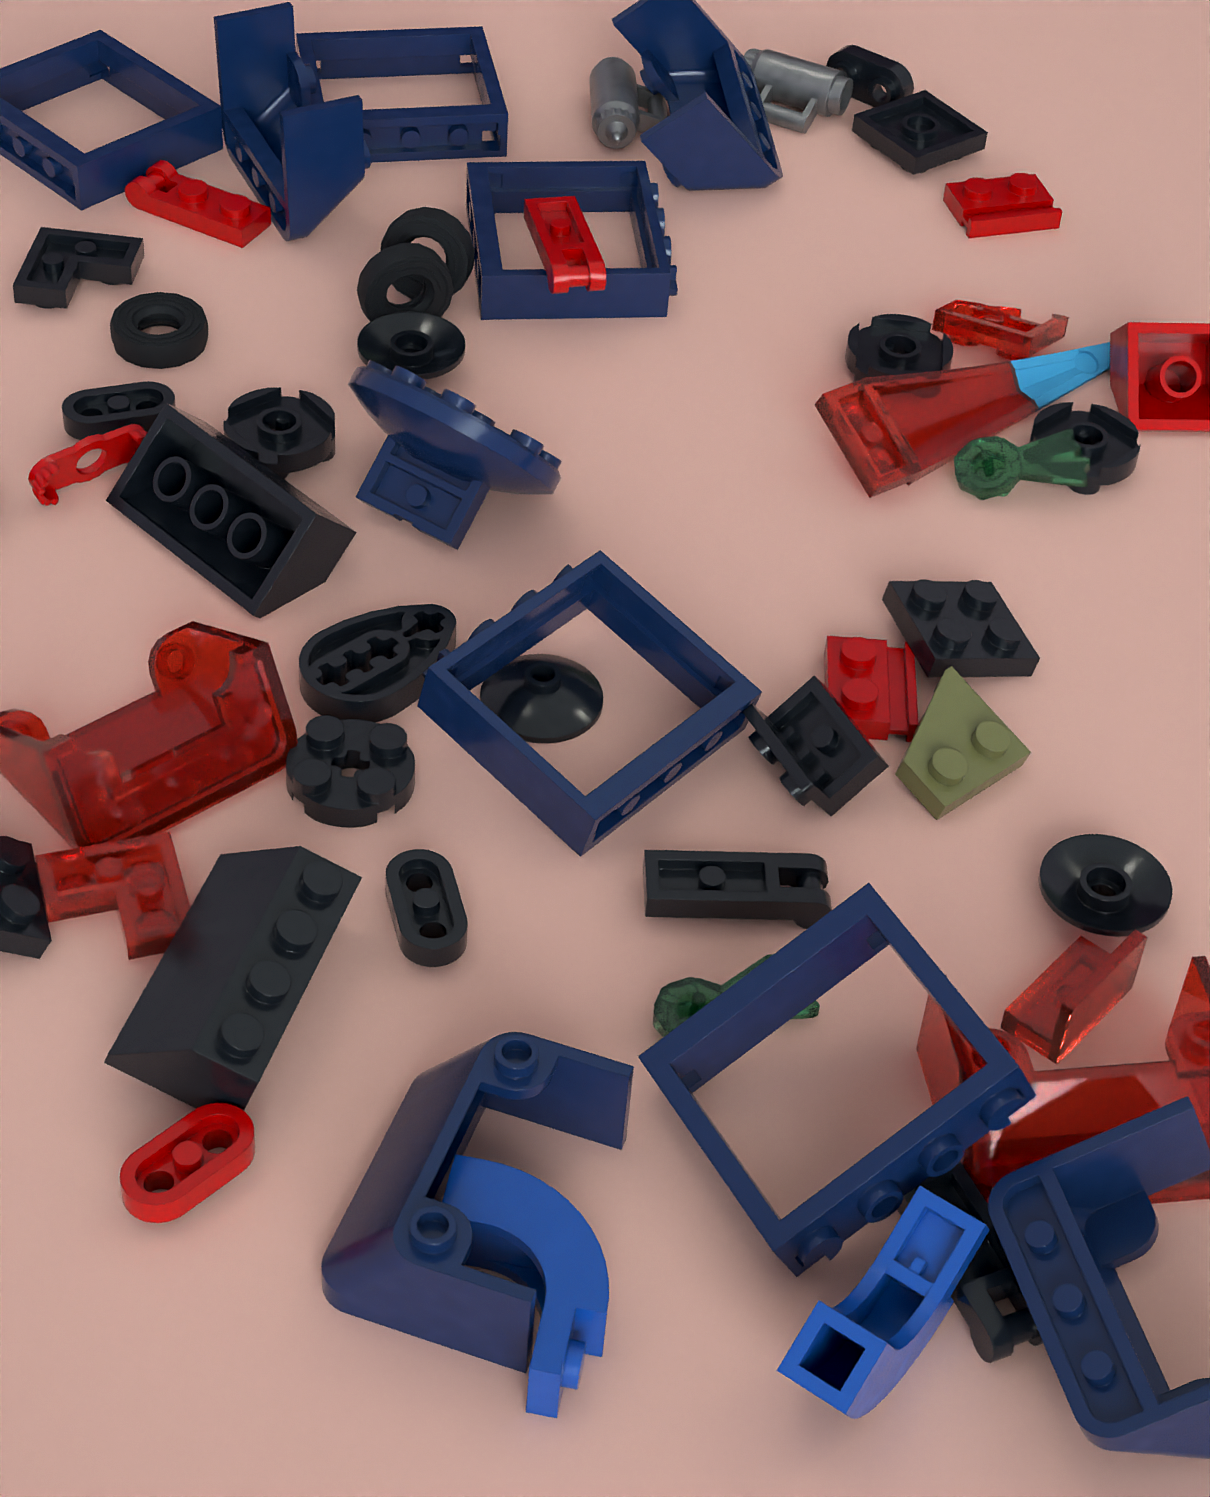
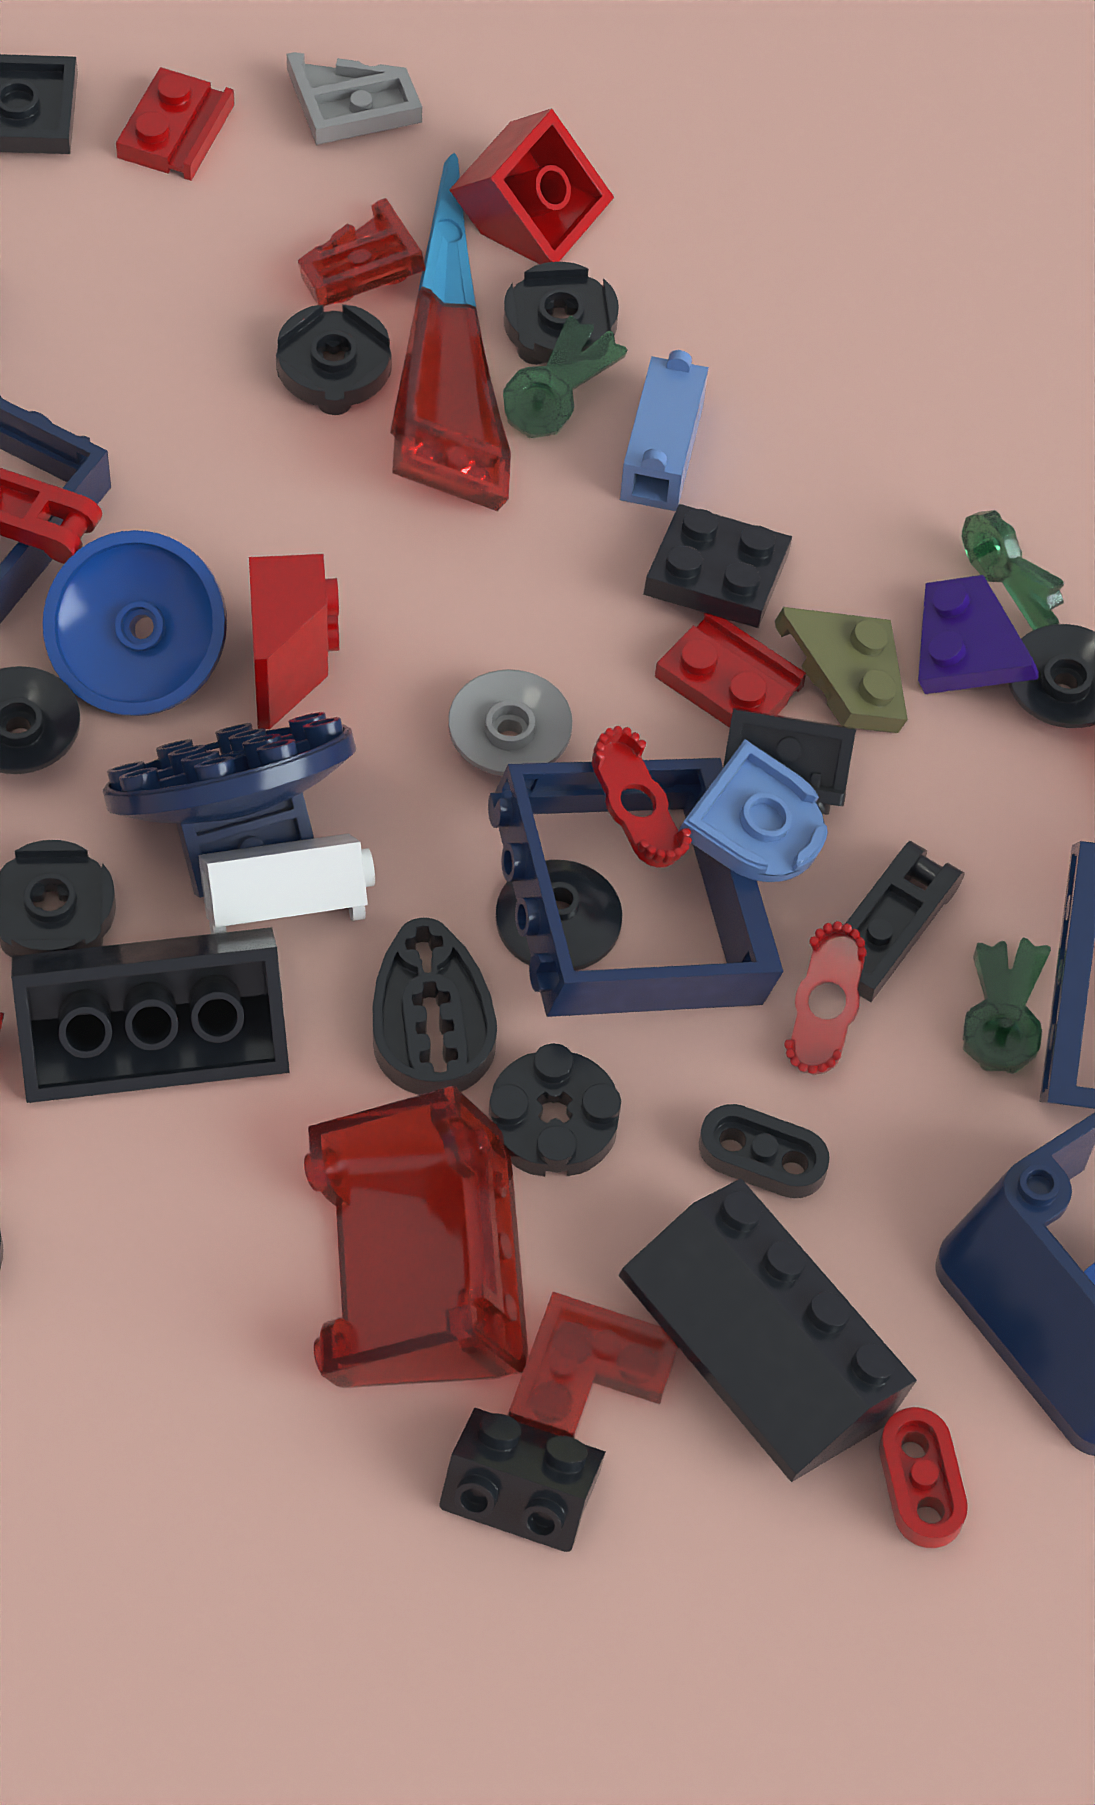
camera: 55 degrees left, 15 degrees up
(402, 520) = (286, 880): none -> white brick
(543, 350) = (95, 613): none -> blue dish
(573, 895) = (838, 960): none -> red piece
(611, 417) = (291, 630): none -> red slope
(674, 619) = (621, 767): none -> red piece
(682, 575) = (513, 703): none -> light grey dish
(722, 732) = (758, 818): none -> medium blue tile
(1044, 540) = (664, 432): none -> medium blue brick
(1066, 803) = (969, 639): none -> dark purple wing
(1132, 267) = (353, 97): none -> light grey wing
(1173, 789) = (996, 554): none -> clear green piece

